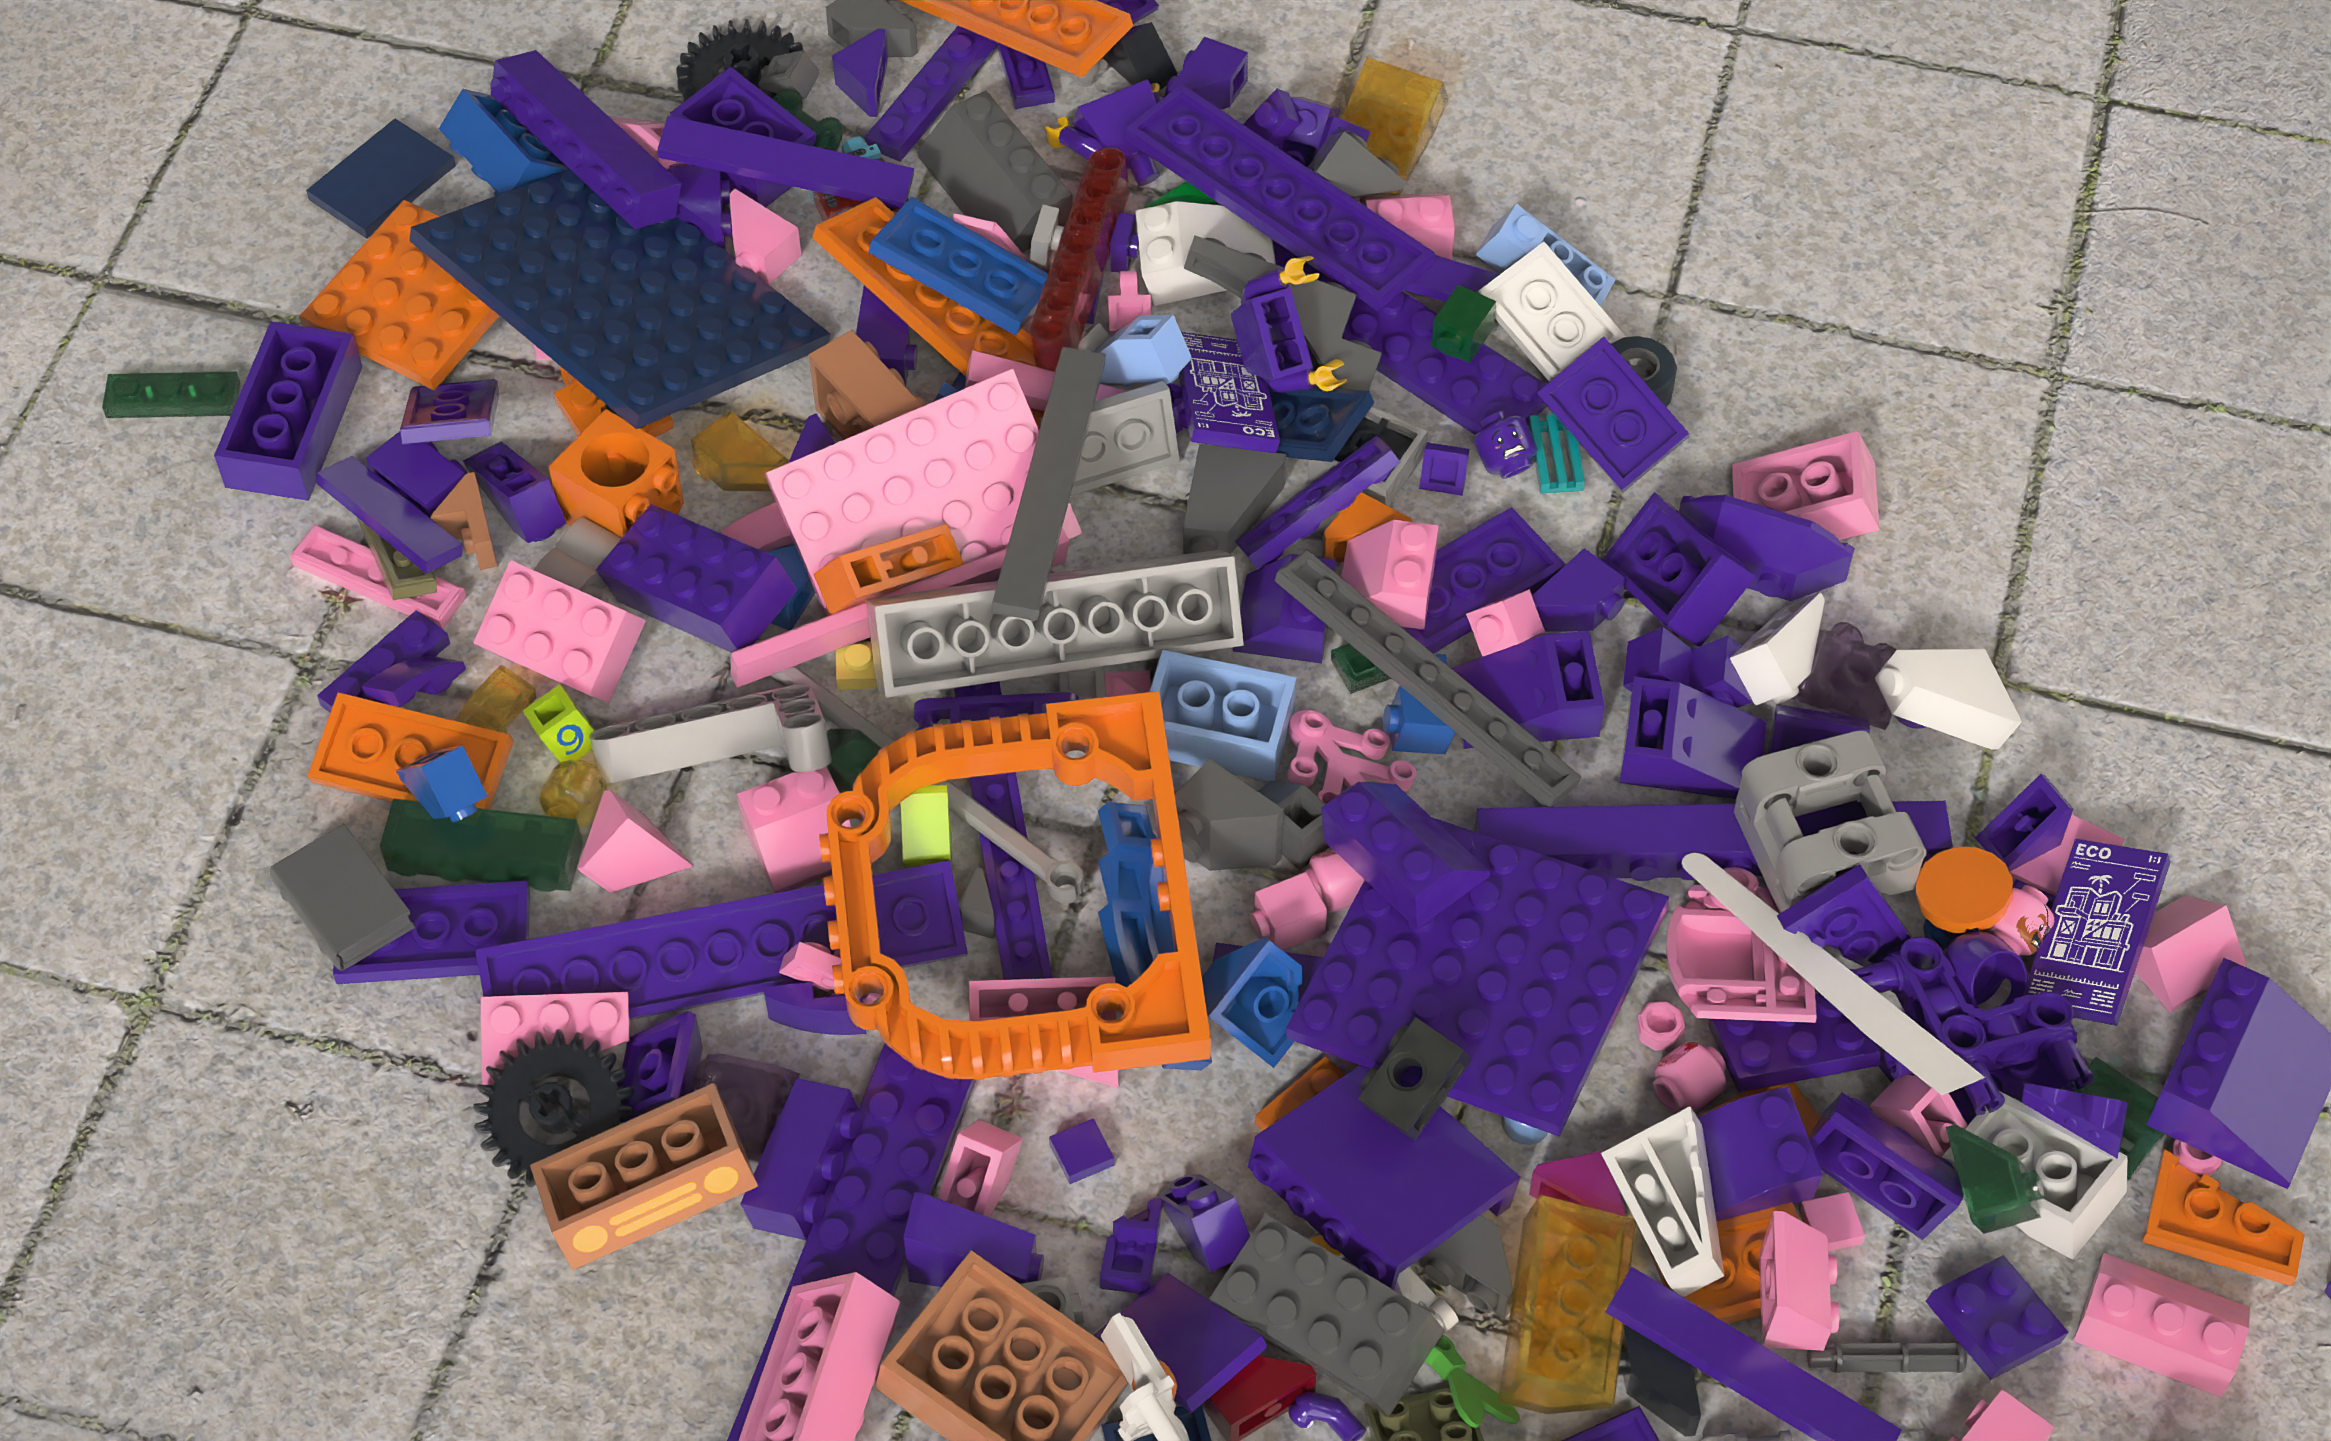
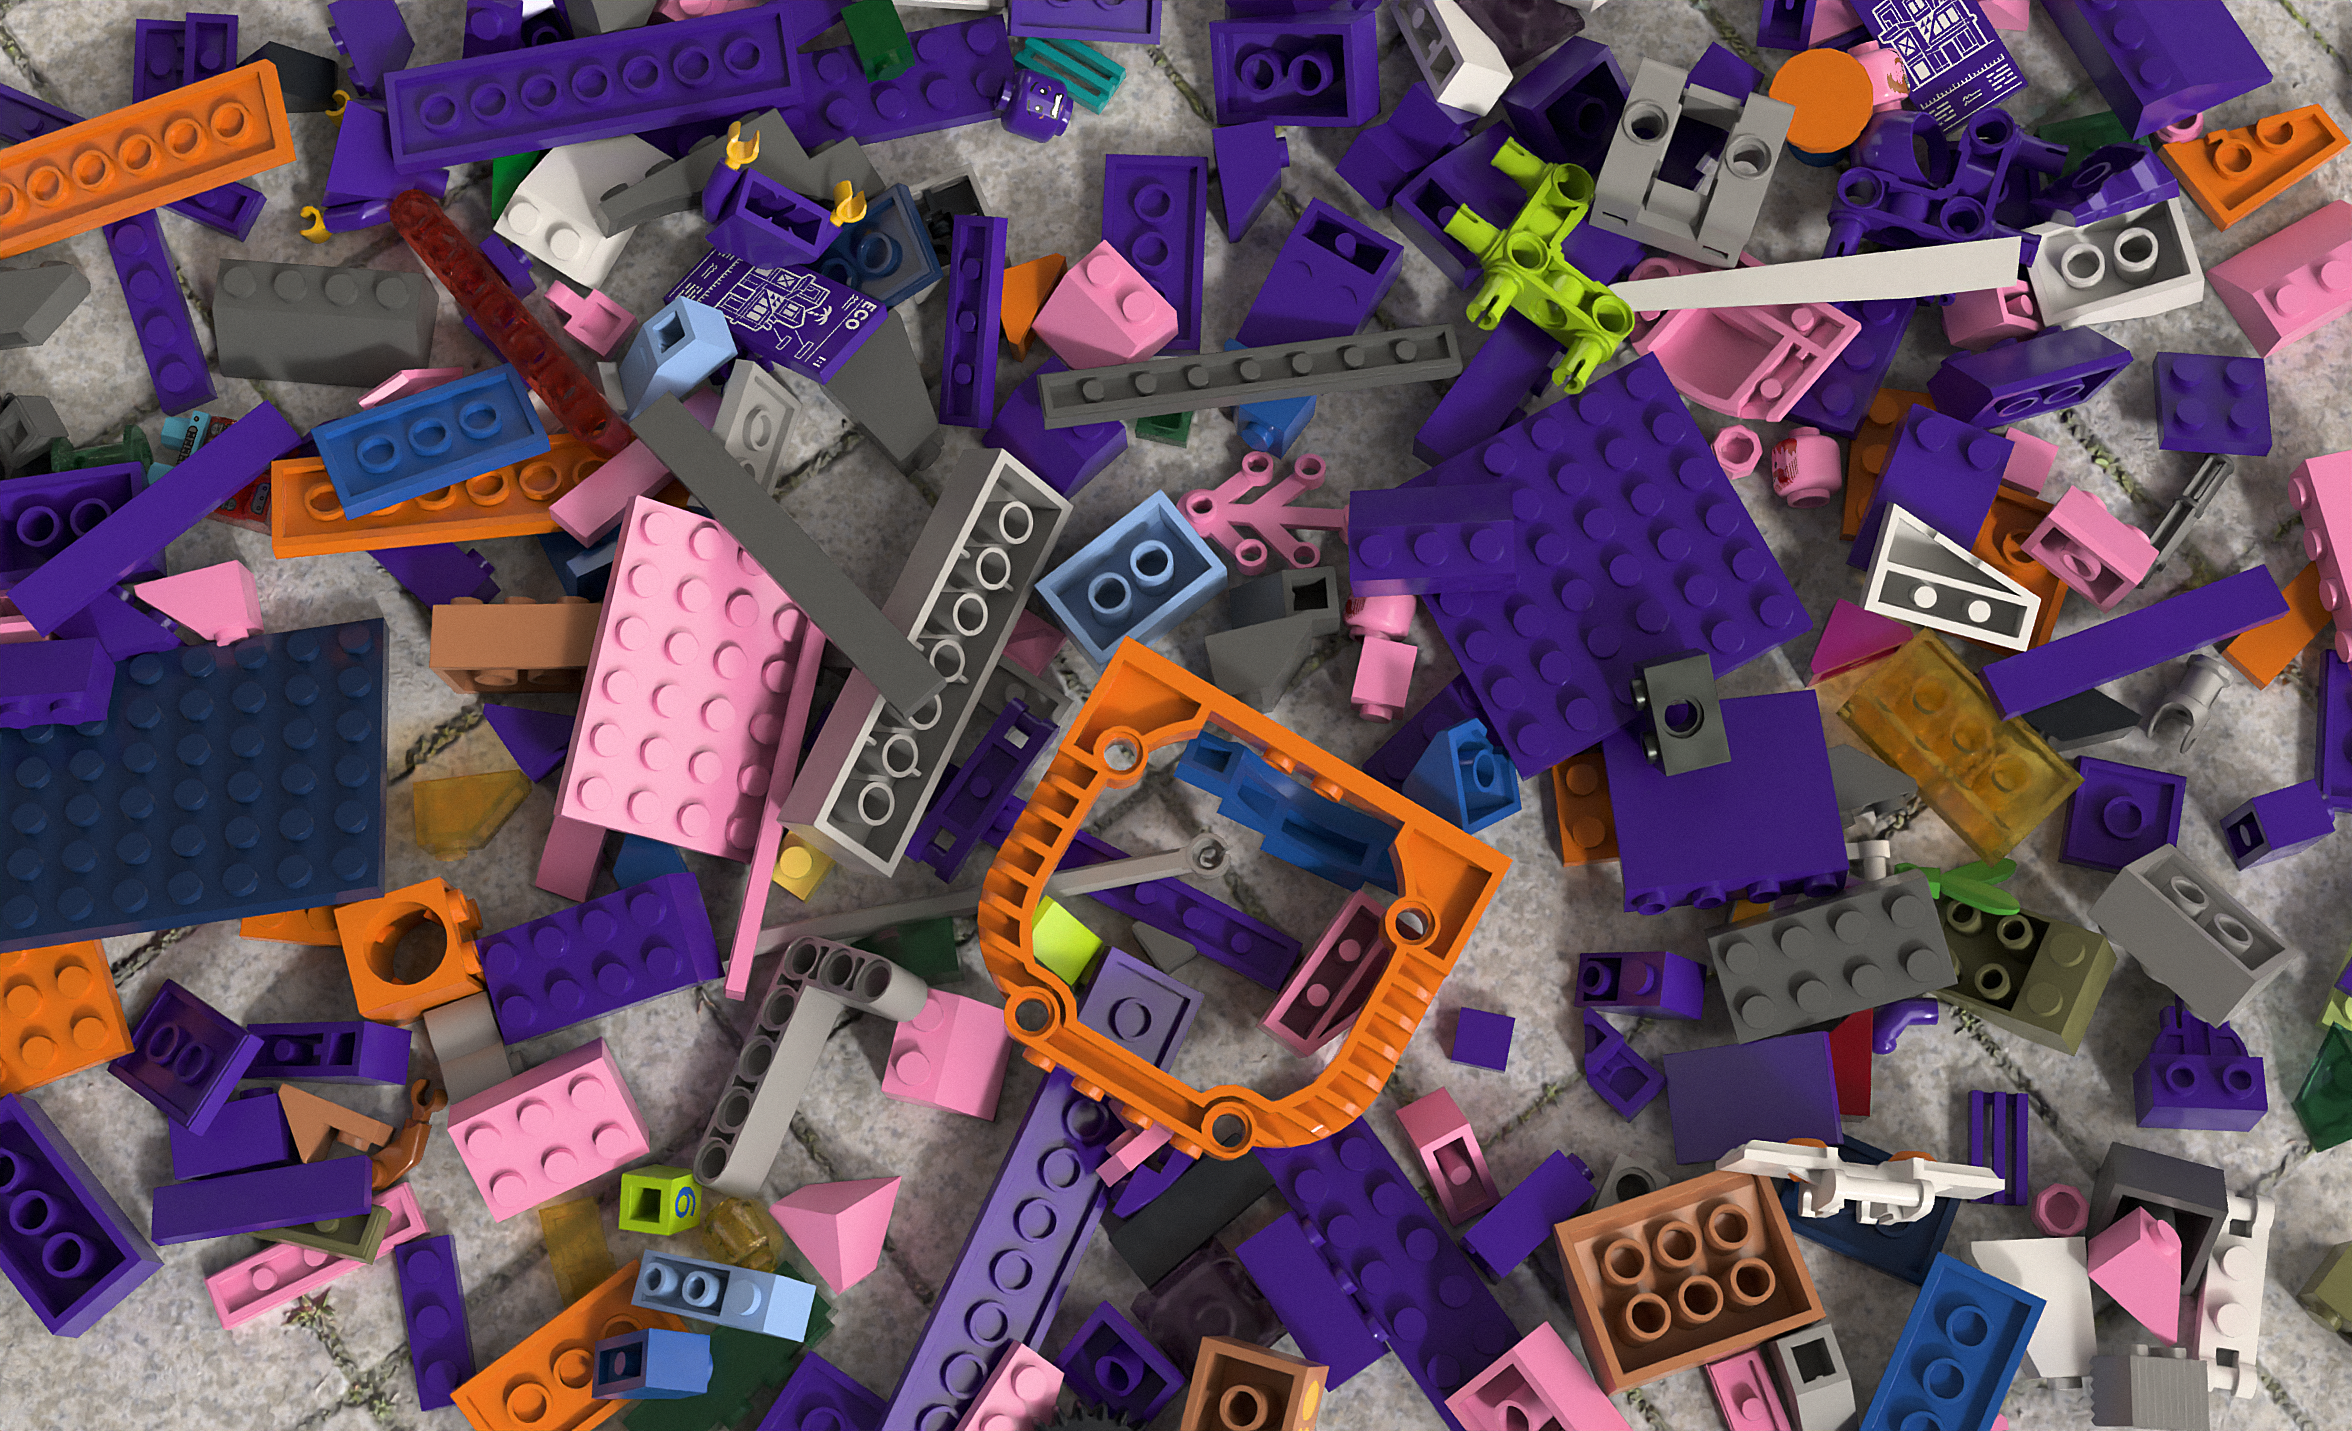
camera: 45 degrees left, 20 degrees up
(422, 674) = (482, 1307): dark purple slope -> none
(481, 576) = (409, 1148): none -> dark orange arm
(524, 794) = (724, 1295): none -> light blue slope
(807, 1044) = (1190, 1213): none -> black slope
(862, 70) = (75, 356): dark purple slope -> none
(886, 567) = (744, 773): orange slope -> none
(1046, 238) = (461, 340): light grey plate -> none
(1444, 468) = (1013, 178): dark purple tile -> none
(1505, 623) = (1239, 260): bright pink brick -> none
(1653, 801) = (1530, 271): none -> lime pin
(1850, 918) = (1792, 216): dark purple wing -> none
(1994, 1182) = (2122, 309): clear green slope -> none

